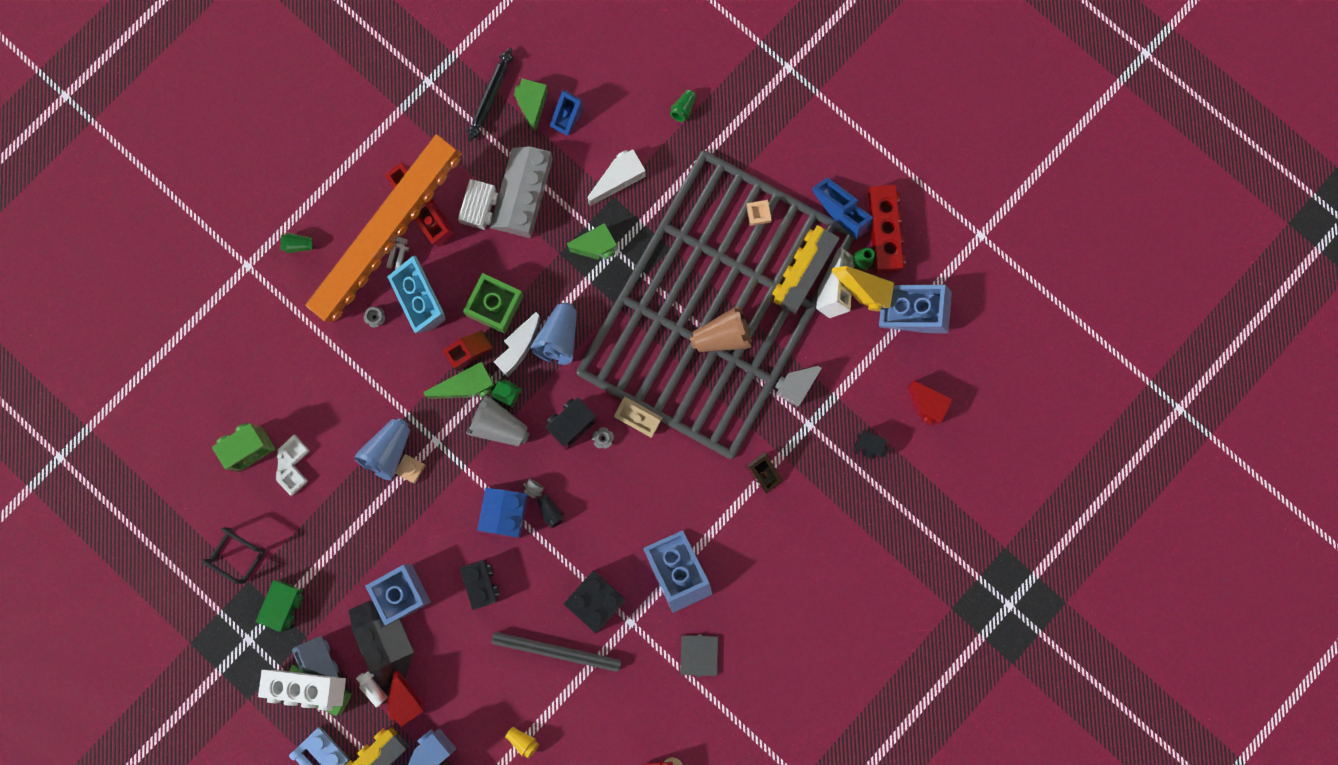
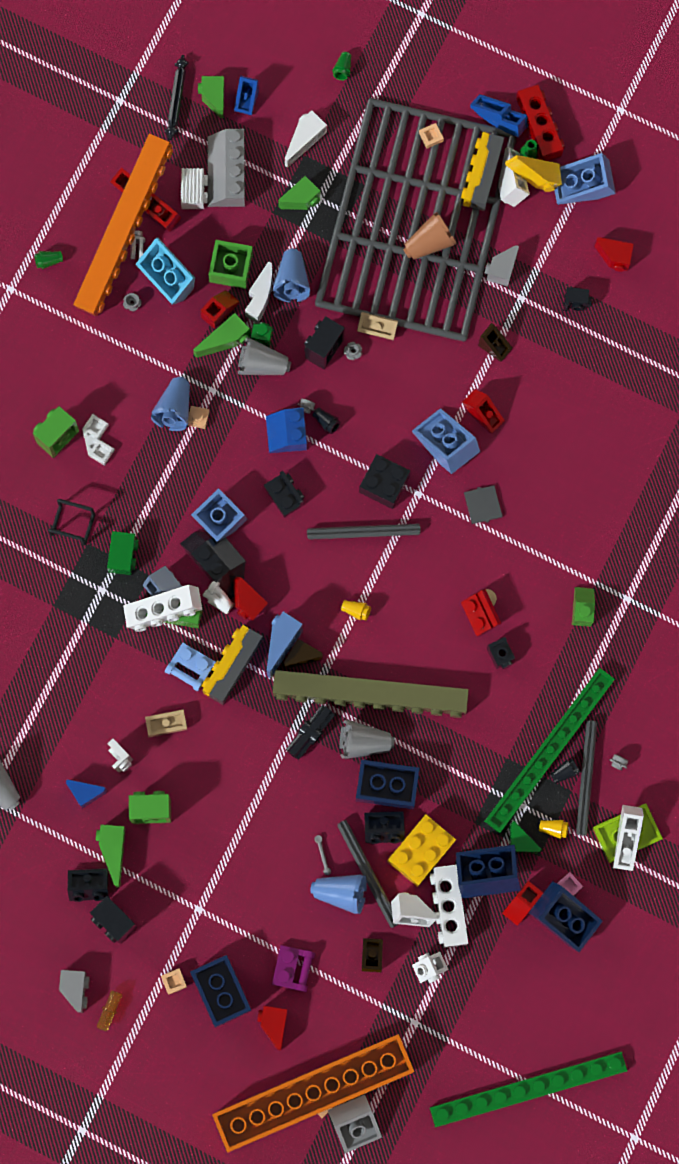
camera: 15 degrees left, 5 degrees down
(729, 547) = (483, 410): none -> red slope

